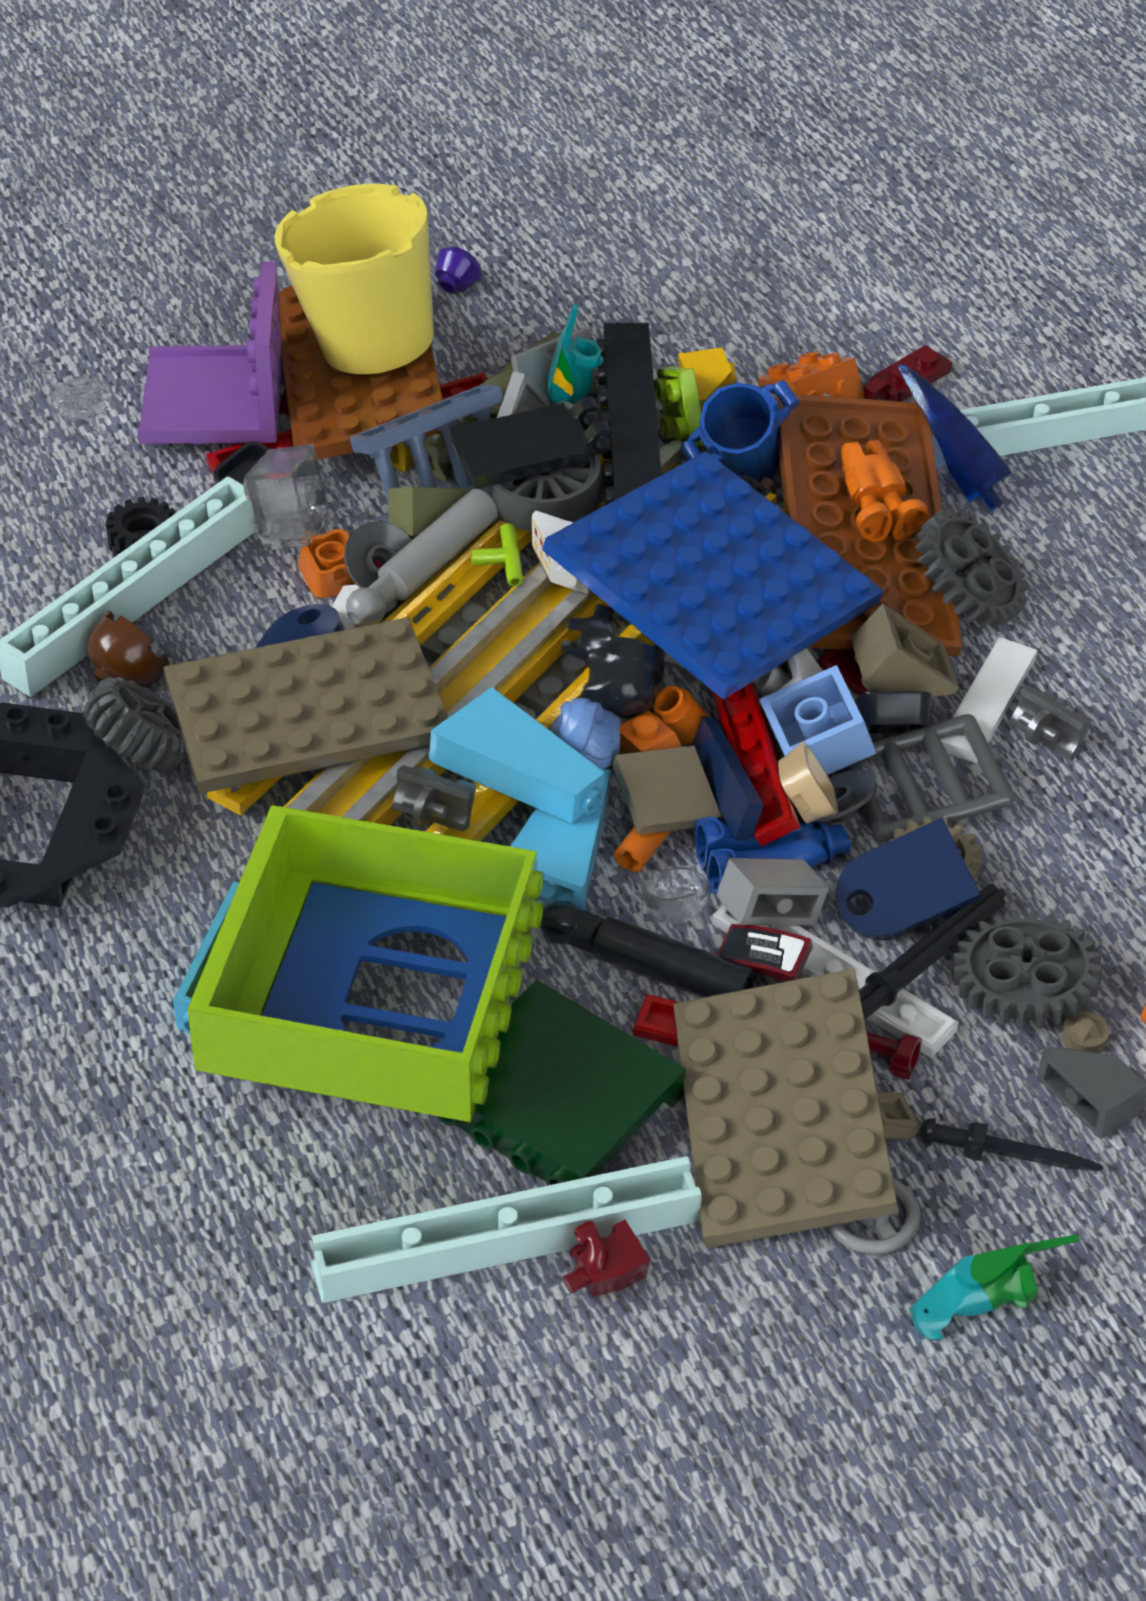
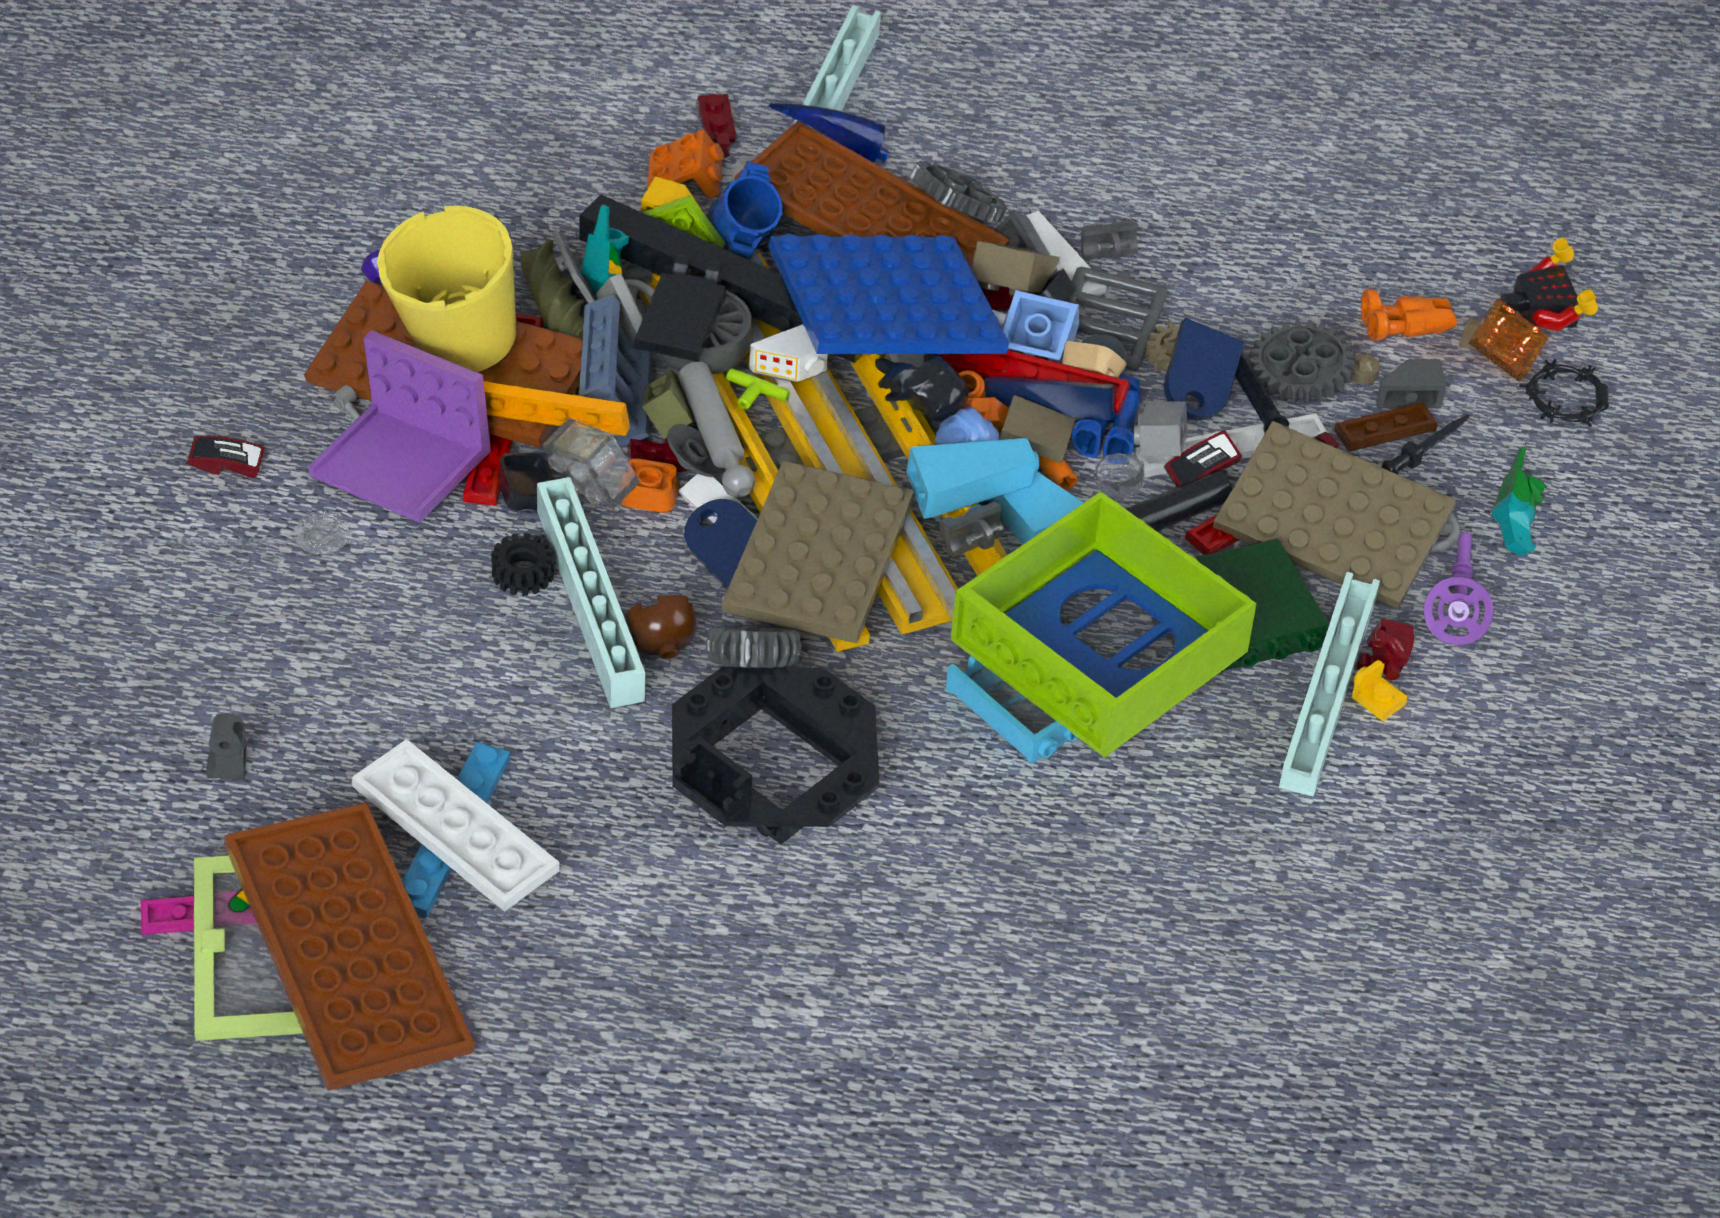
camera: 60 degrees left, 0 degrees up
(126, 299) = (215, 452): none -> slope
(313, 416) = (555, 408): none -> light orange plate
(535, 1284) = (1377, 693): none -> yellow bracket
(741, 1300) = (1459, 600): none -> medium lavender dish
(878, 489) = (864, 186): orange piece -> none
(978, 656) = (1021, 233): none -> dark grey slope
(1007, 1098) = (1385, 427): none -> reddish brown tile

